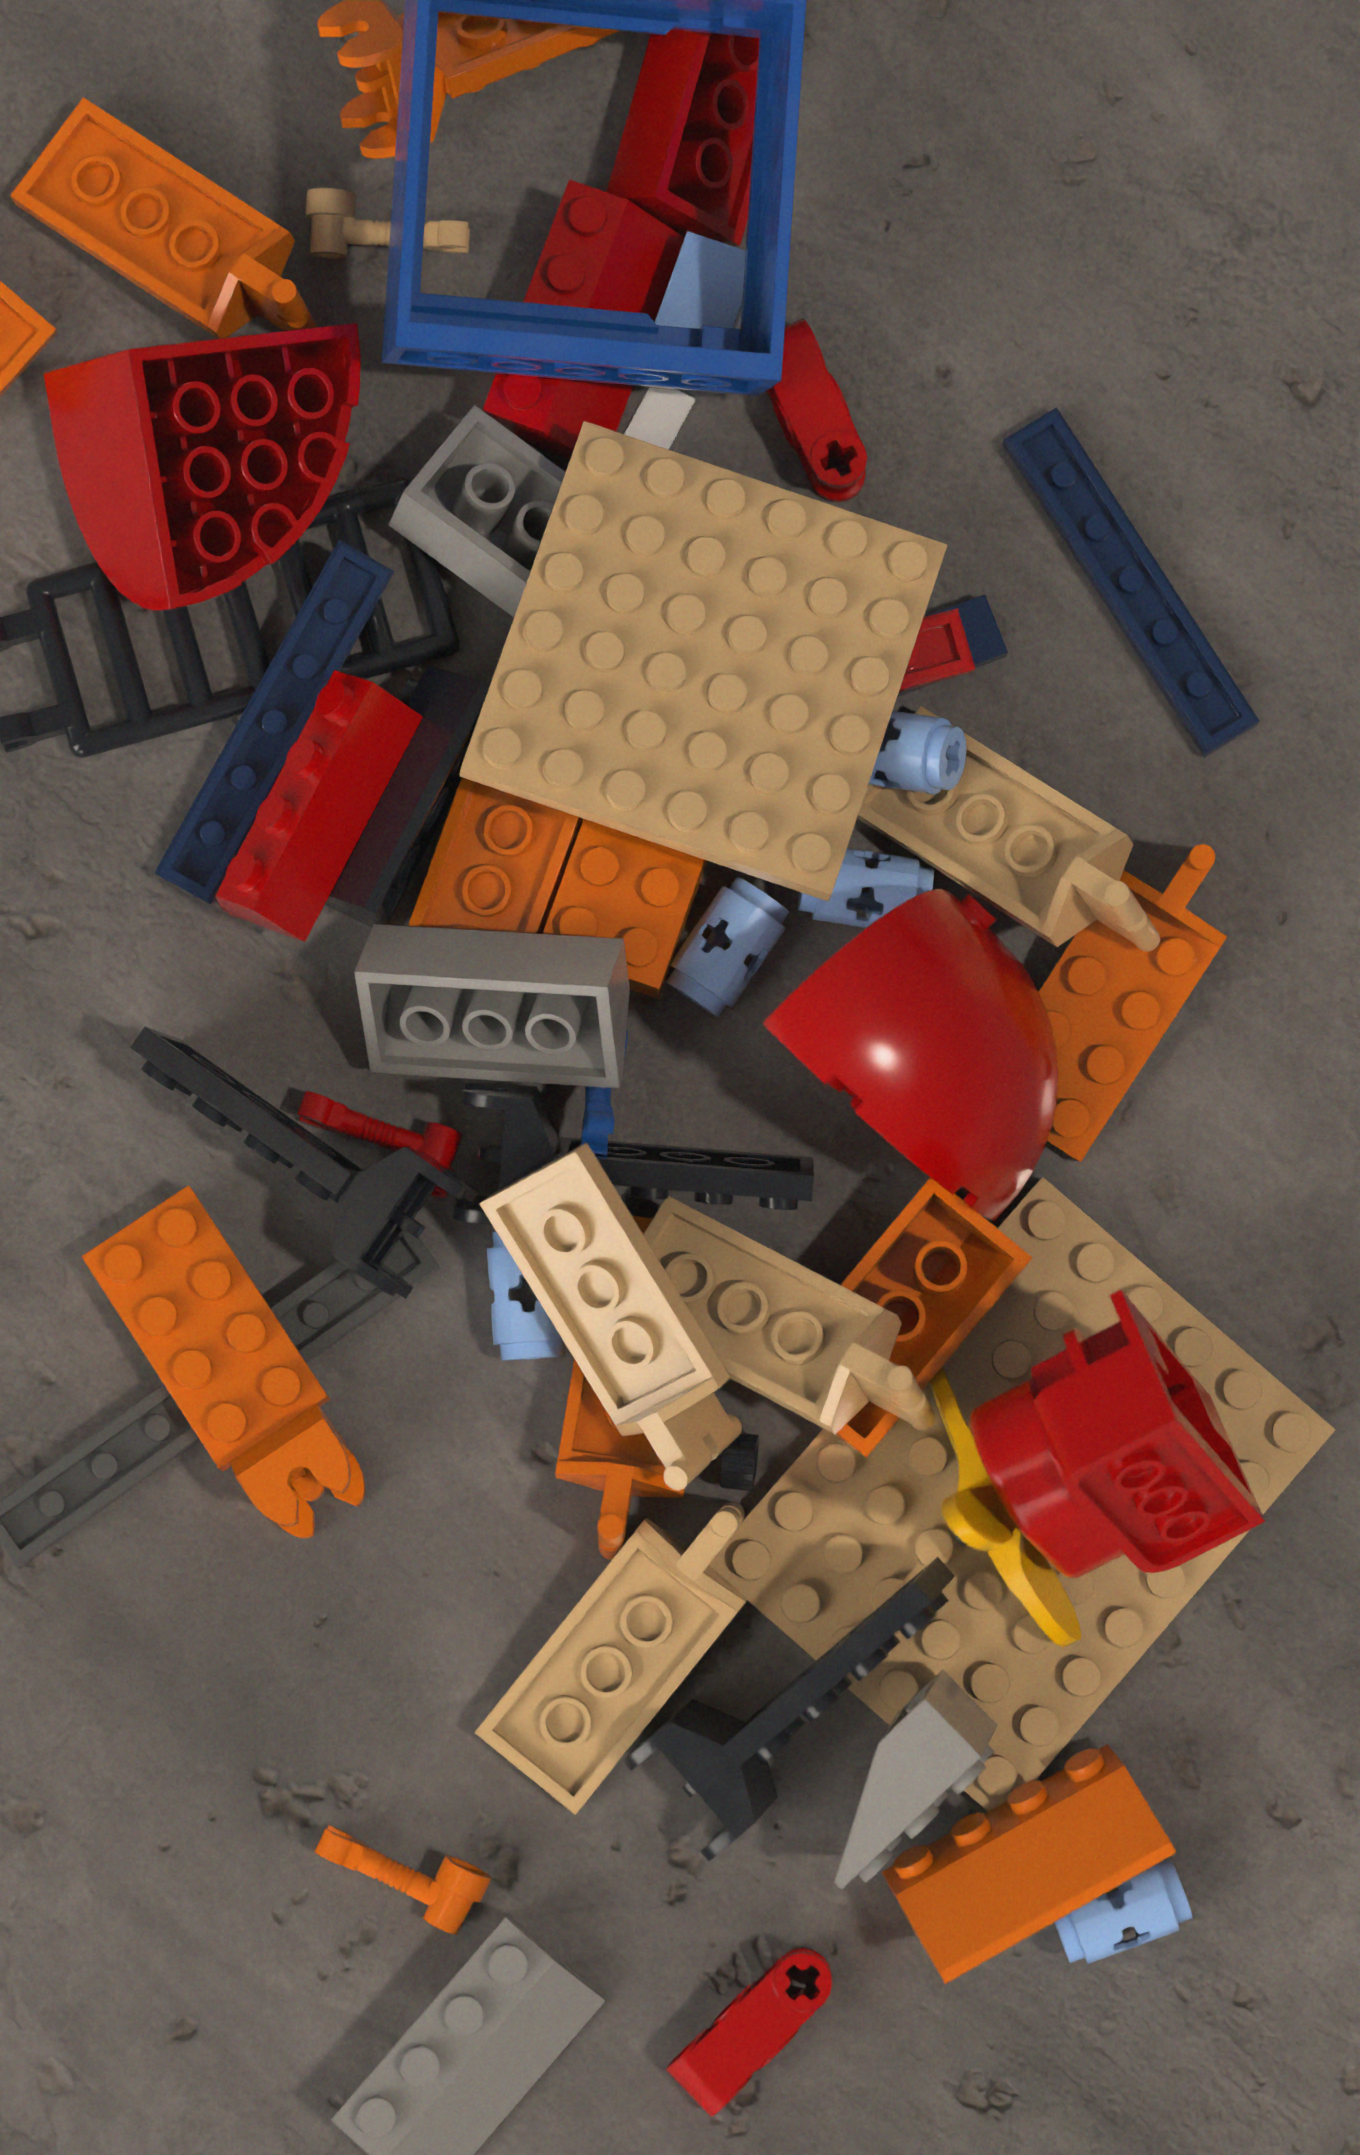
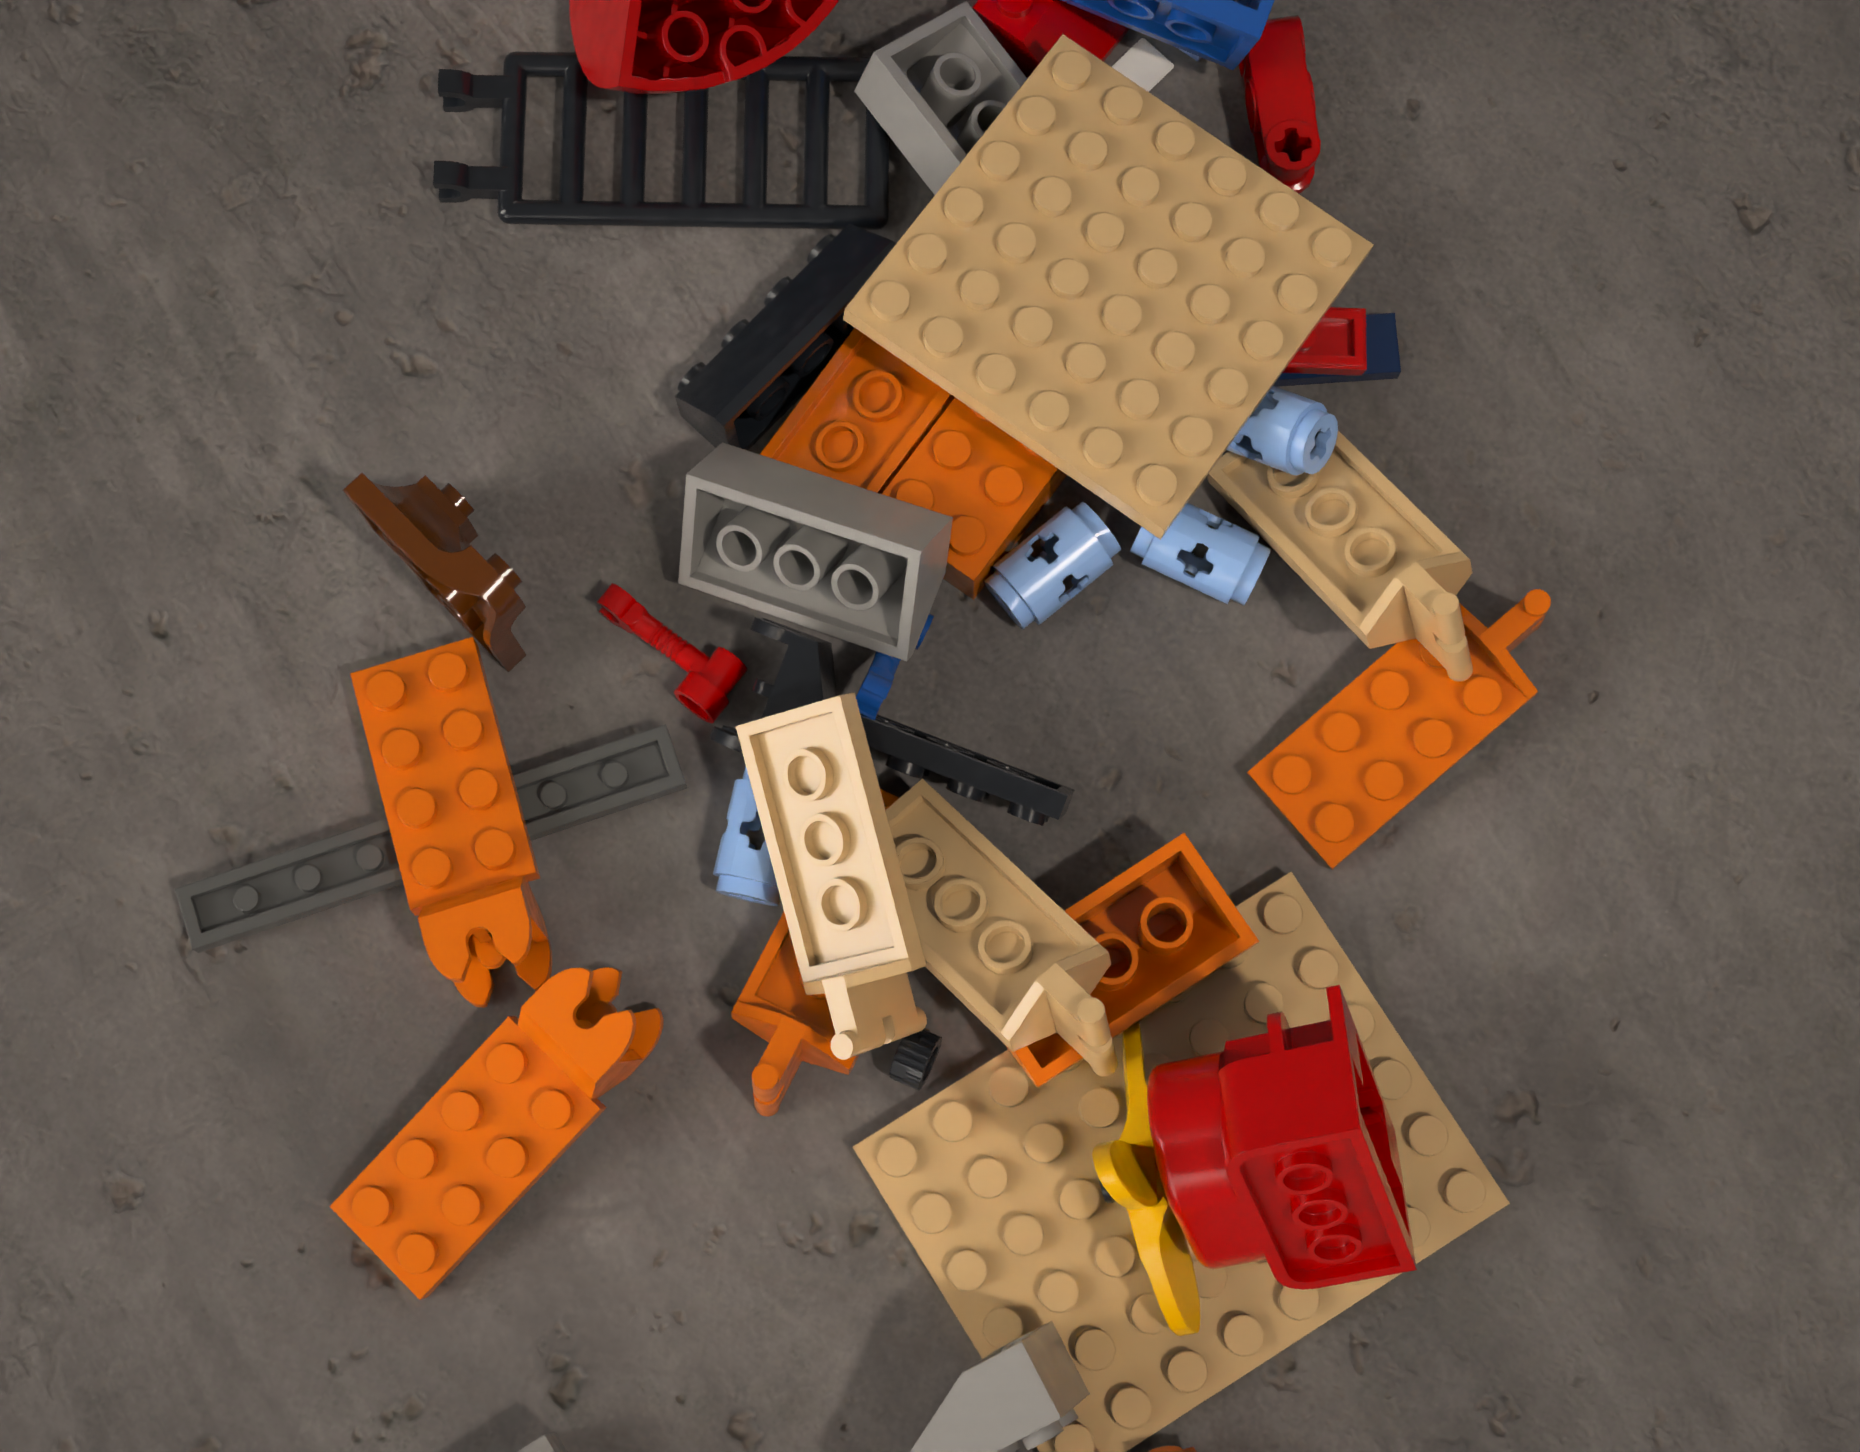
camera: 20 degrees right, 5 degrees down
(114, 1098) = (434, 539): none -> reddish brown slope
(273, 721) = (692, 238): dark blue tile -> none
(318, 806) = (703, 317): red slope -> none
(363, 1649) = (497, 1126): none -> orange hinge
(372, 1202) = (636, 698): black hinge -> none
(447, 1895) = (499, 1395): orange brick -> none
(616, 1659) = (736, 1212): tan hinge -> none
(729, 1757) = (814, 1344): black hinge -> none
(934, 1044) = (1221, 702): red brick -> none
(1130, 582) = (1536, 345): dark blue tile -> none

